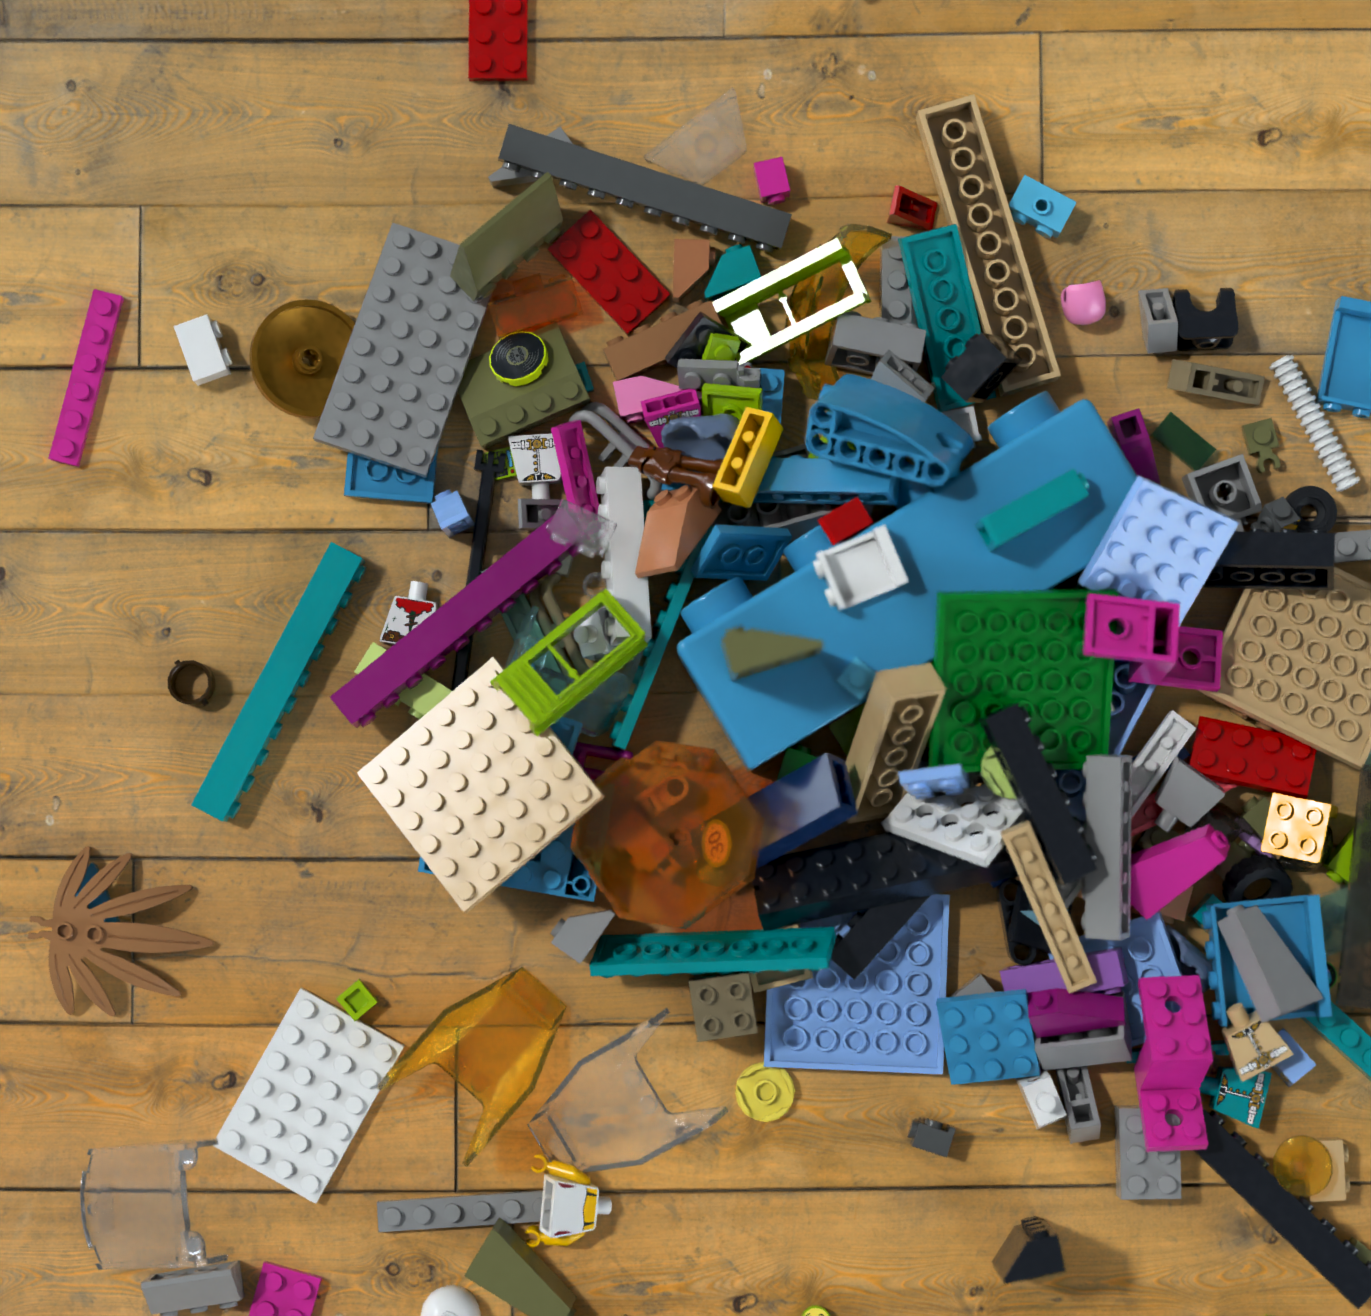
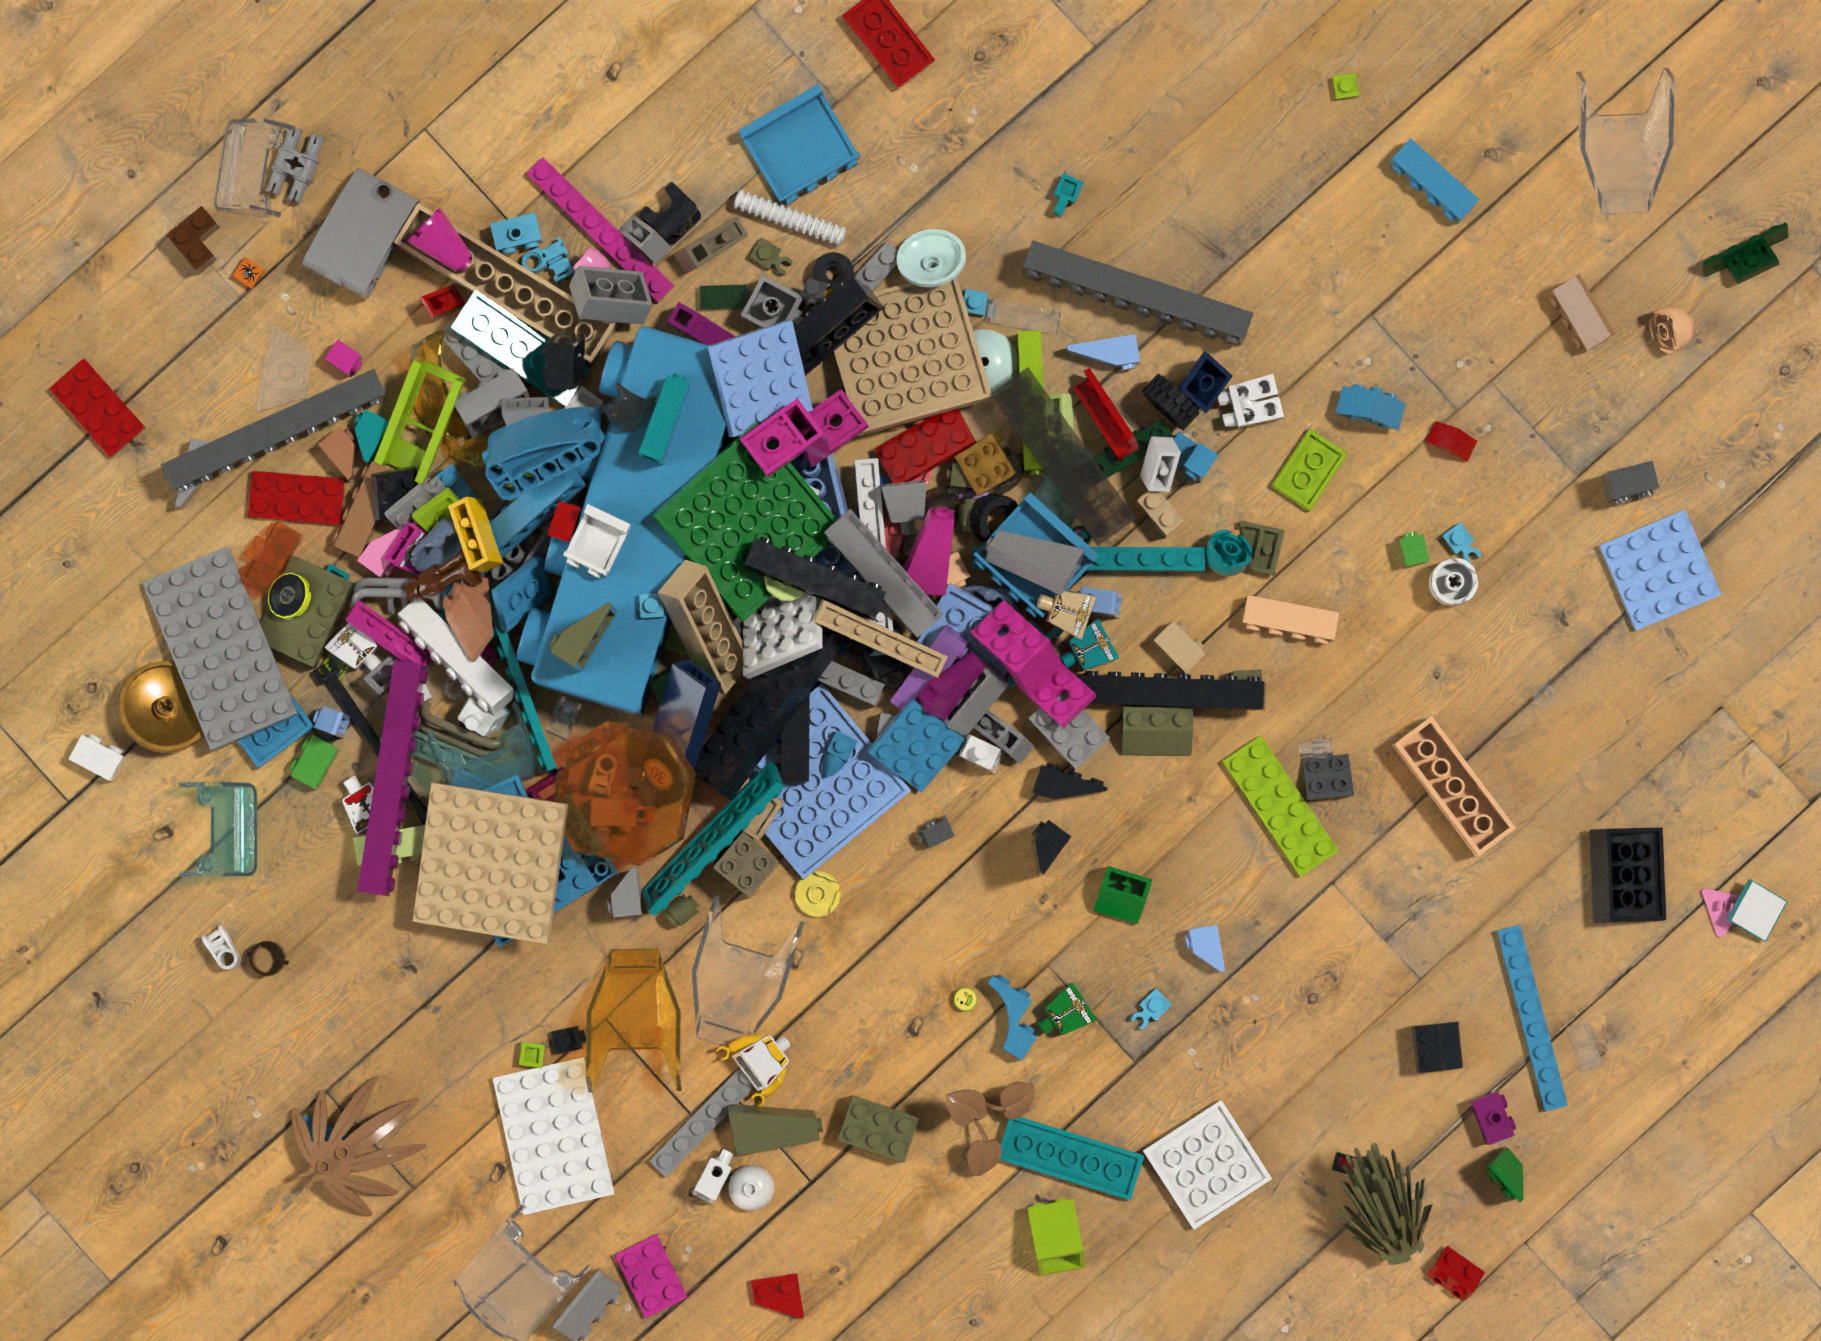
camera: 50 degrees left, 0 degrees up
(86, 378) = (42, 836): dark pink plate -> none
(158, 633) = (221, 947): none -> white piece
(266, 531) = (232, 829): none -> clear light blue windscreen
(278, 683) = (319, 911): teal brick -> none
(401, 536) = (314, 762): none -> bright green brick
(404, 1016) = (568, 1039): none -> black bracket
(410, 1277) = (710, 1186): none -> white torso
(508, 239) = (221, 532): olive slope -> none
(531, 692) = (477, 782): lime piece -> none
(581, 529) = (416, 662): clear bracket -> none
(621, 991) = (681, 910): none -> olive brick
(659, 587) = (493, 655): none -> dark pink plate
(674, 707) = (564, 718): none -> clear slope
(721, 347) = (403, 483): lime plate -> none
(753, 20) = (248, 273): none -> orange tile
(891, 75) = (360, 234): none -> light grey panel
(905, 976) = (838, 753): none -> dark azure plate
(926, 781) = (749, 623): light blue plate -> none
(965, 149) = (441, 241): none -> dark pink cone
(978, 923) = (852, 683): none -> light grey brick
(1005, 467) = (628, 409): none -> clear smoke piece
(1056, 261) = (554, 257): none -> medium azure piece
(1080, 344) = (610, 295): none -> light grey brick
(1088, 1196) = (1059, 785): none -> black slope
(1122, 274) = (598, 227): none -> dark pink plate
(1231, 1230) = (1157, 731): none -> olive slope
(1316, 1163) = (1166, 646): clear yellow dish -> none

